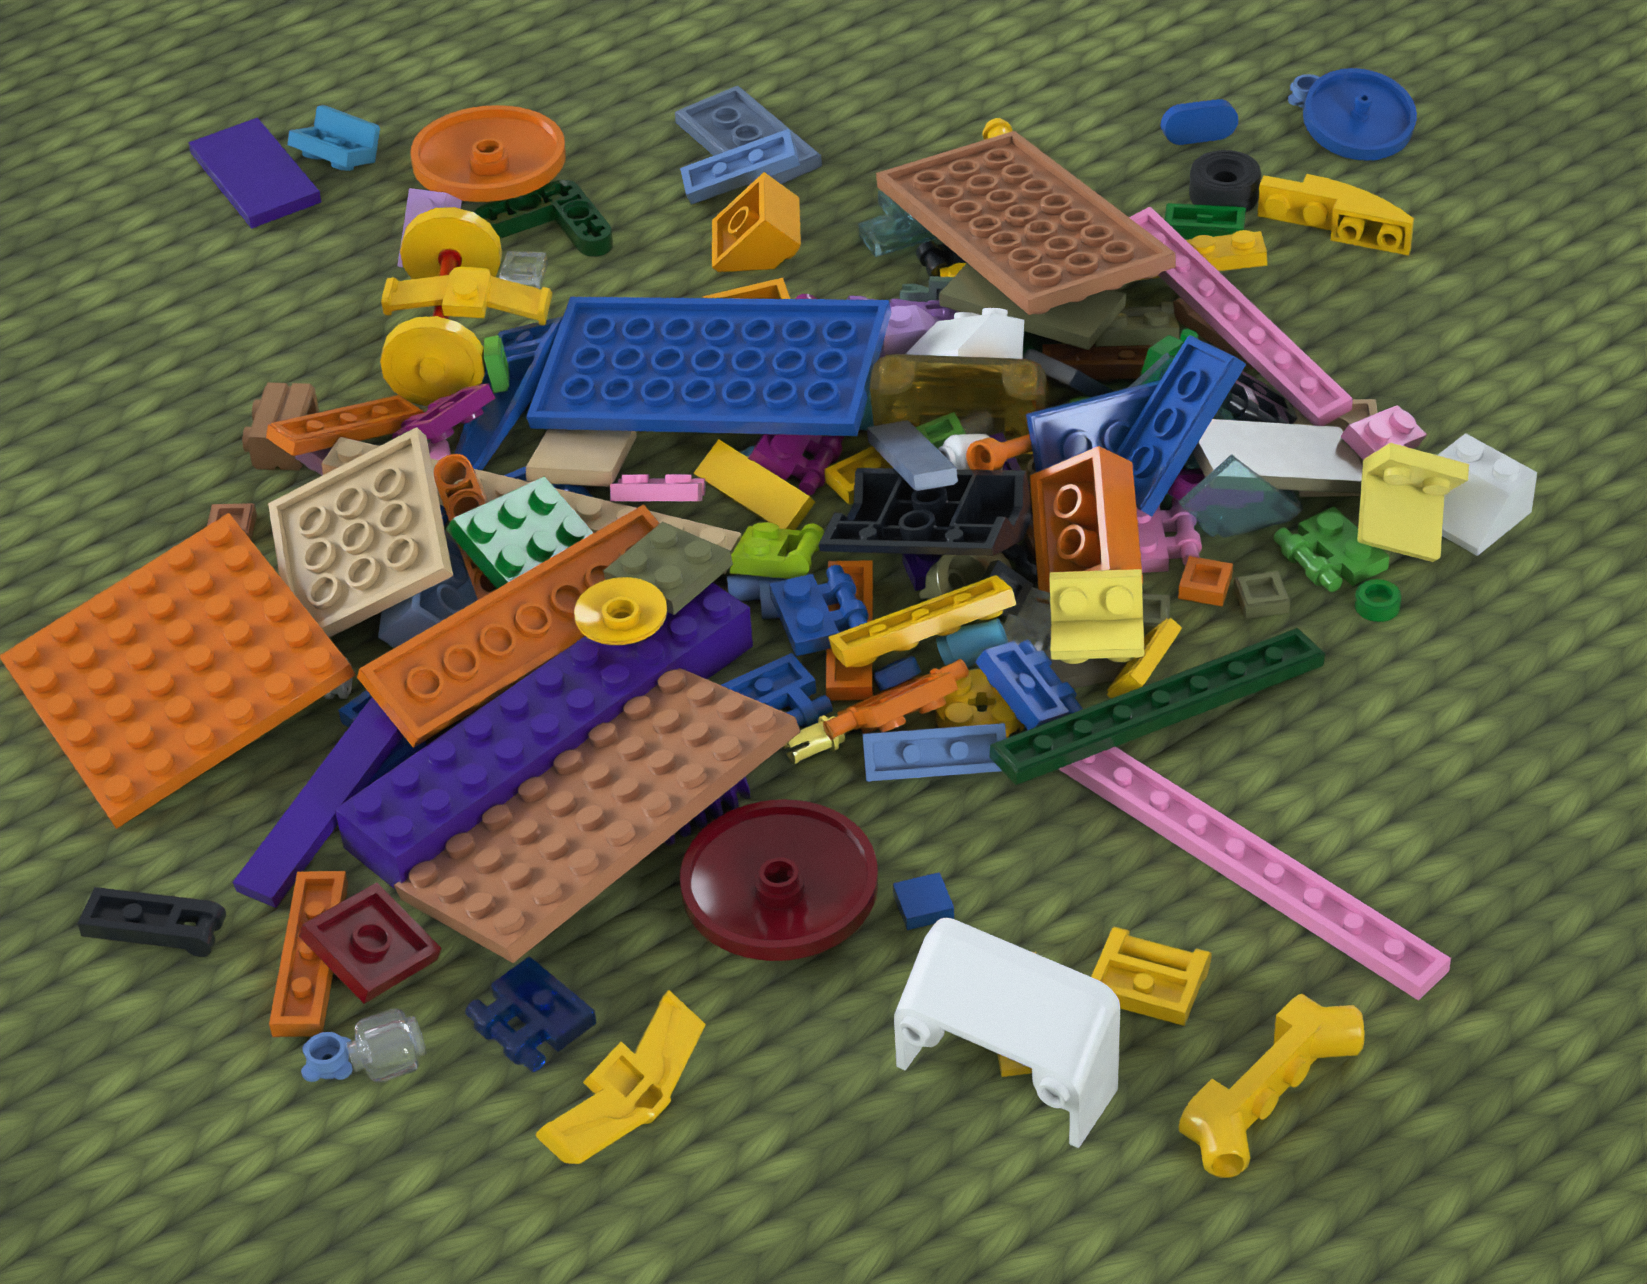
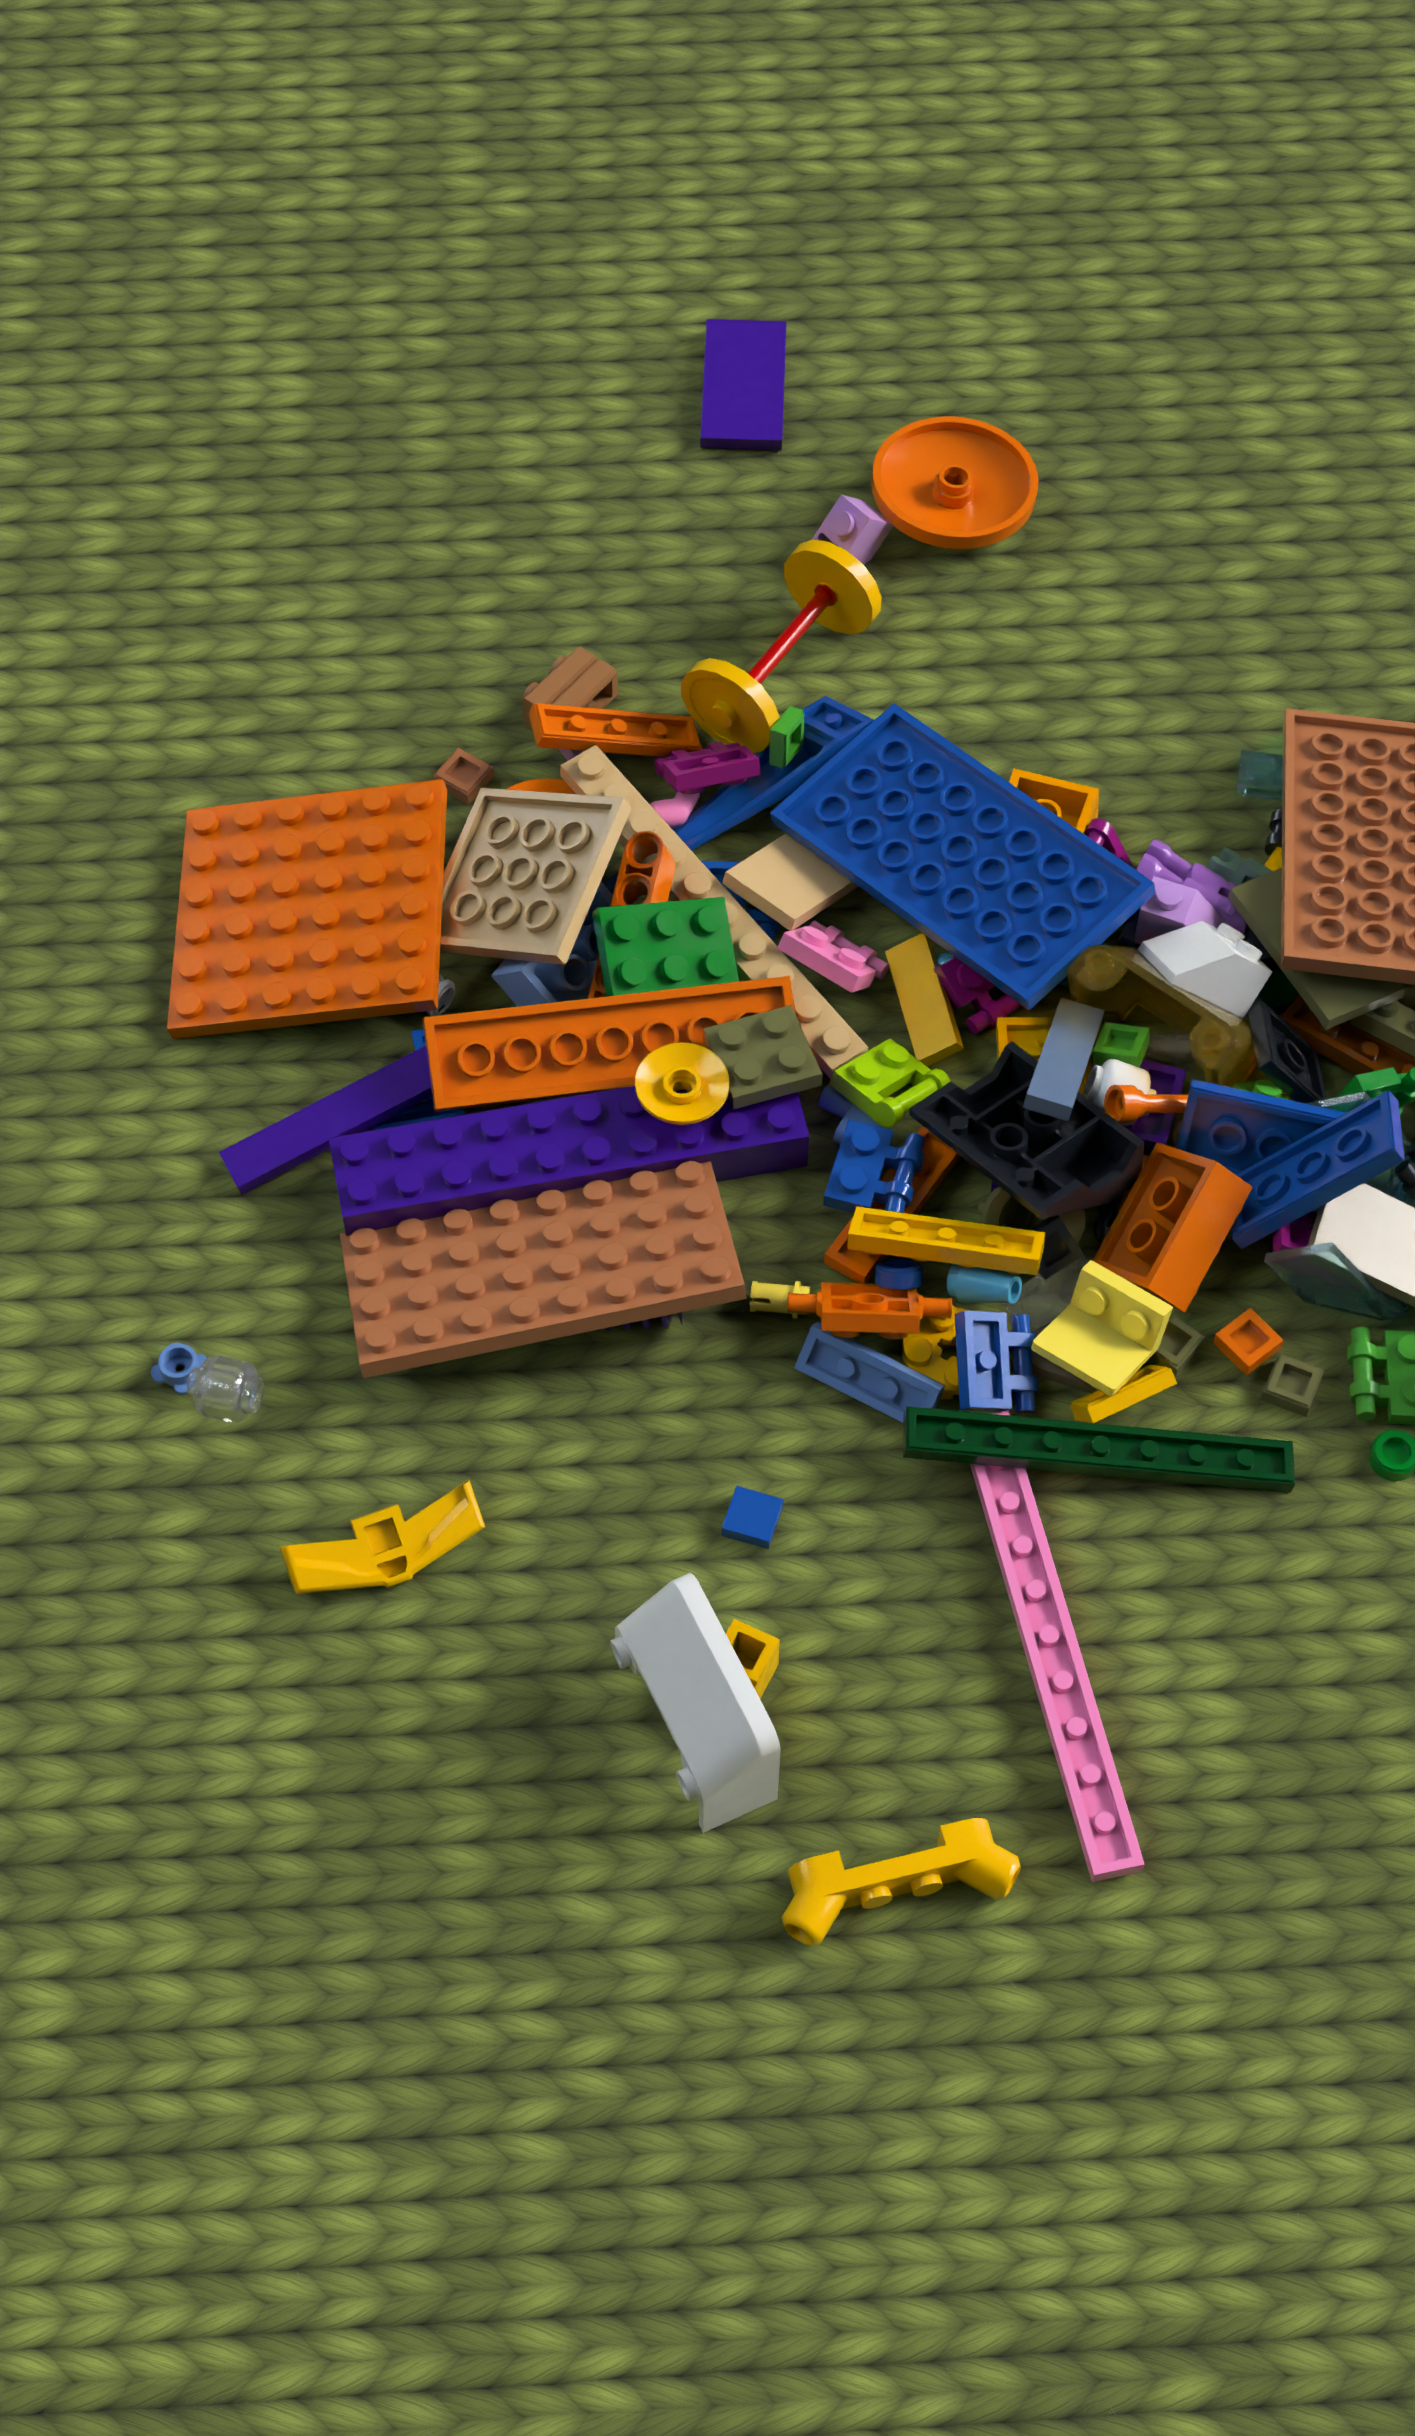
camera: 30 degrees right, 15 degrees up
(152, 920) = (134, 1150): black plate -> none
(303, 977) = (230, 1259): orange plate -> none
(337, 138) = (835, 388): dark azure bracket -> none
(370, 942) = (276, 1282): dark red plate -> none
(467, 294) = (805, 648): yellow plate -> none
(524, 268) = (897, 634): clear plate -> none
(540, 1002) = (374, 1426): clear blue plate -> none
(557, 202) = (983, 579): dark green beam -> none
(736, 120) = (1217, 589): sand blue tile -> none
(739, 166) = (1174, 624): medium blue plate -> none
(757, 228) = (1141, 705): light orange slope -> none
(779, 880) = (639, 1427): dark red dish -> none
(783, 685) = (776, 1224): blue plate -> none
(1155, 985) = (869, 1721): yellow plate -> none
(1157, 548) = (1233, 1274): bright pink plate -> none

